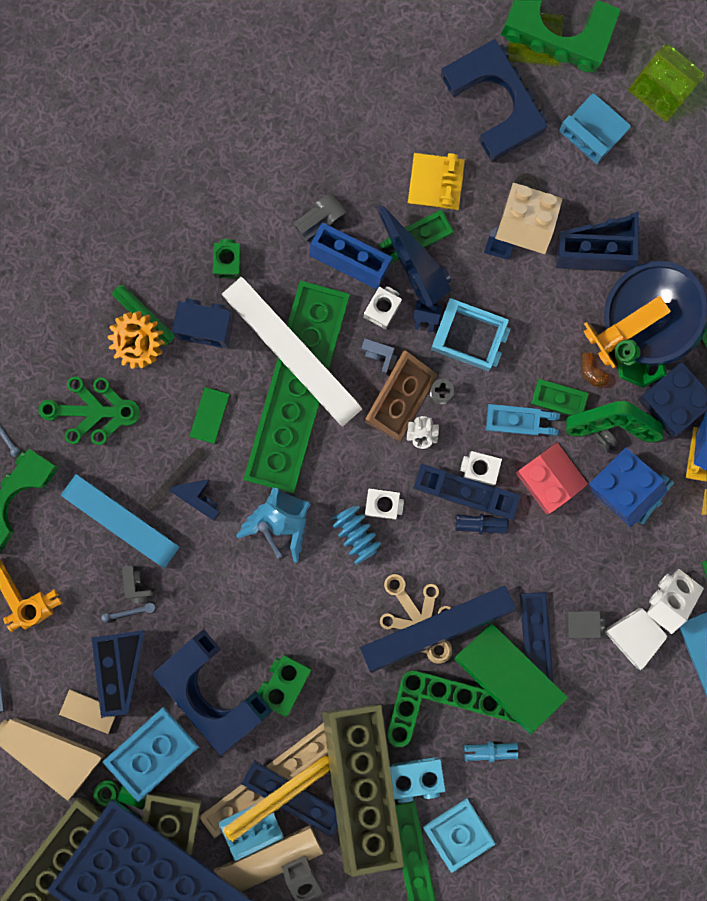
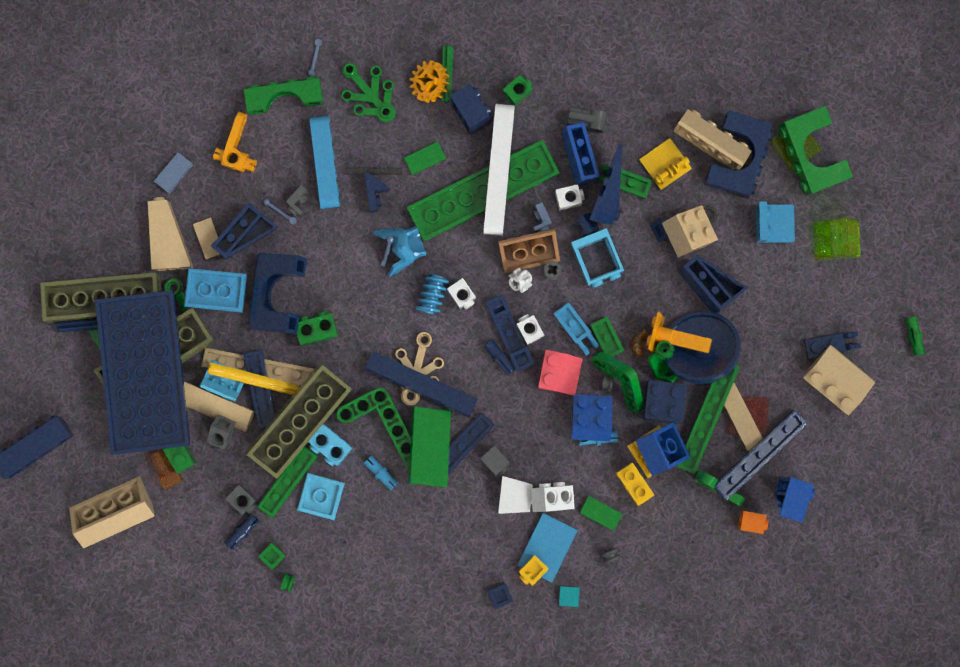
camera: 50 degrees right, 0 degrees up
(457, 113) = (712, 140): none -> tan slope

